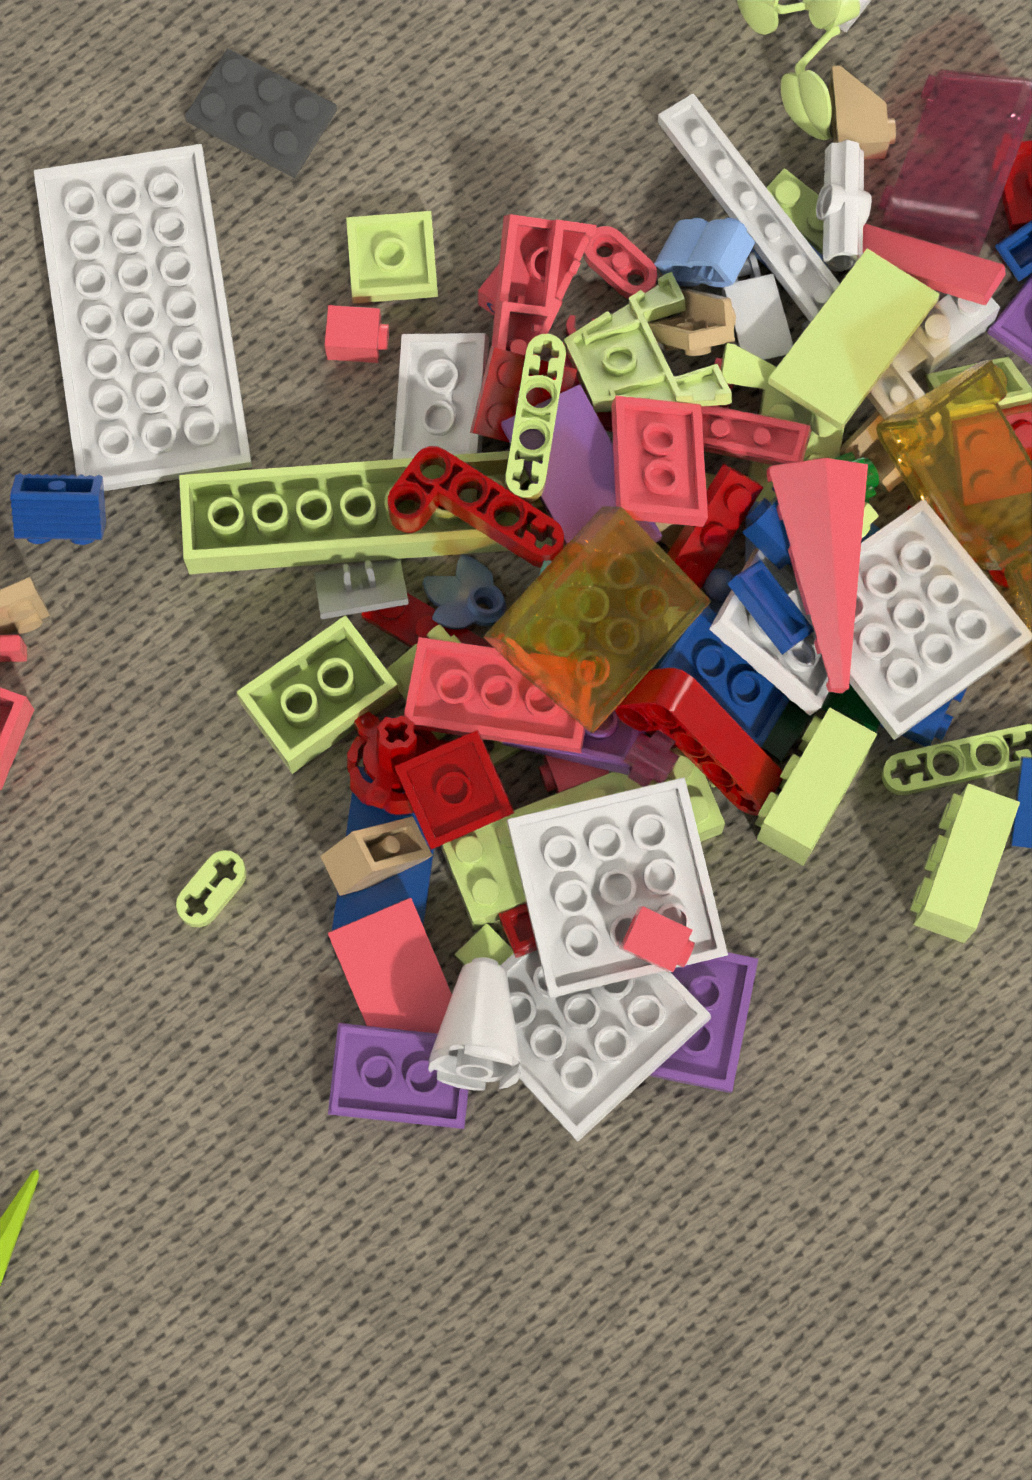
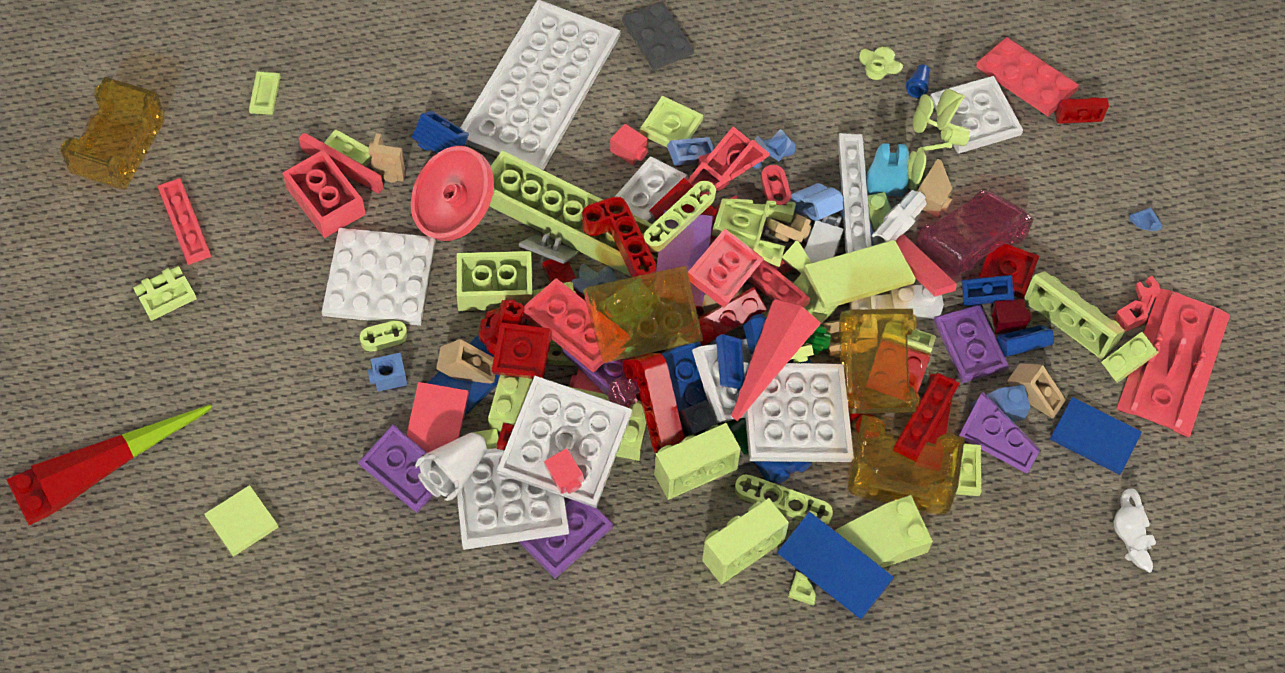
camera: 30 degrees right, 15 degrees down
(132, 797) = (379, 276): none -> white plate
(155, 596) = (452, 193): none -> coral dish
(219, 1313) = (241, 520): none -> yellowish green tile
(264, 924) = (387, 363): none -> medium blue brick
(457, 285) = (687, 150): none -> medium blue plate
(578, 193) = (778, 146): none -> medium blue piece
(777, 134) = (889, 171): none -> medium azure piece
(779, 725) = (696, 418): none -> black brick

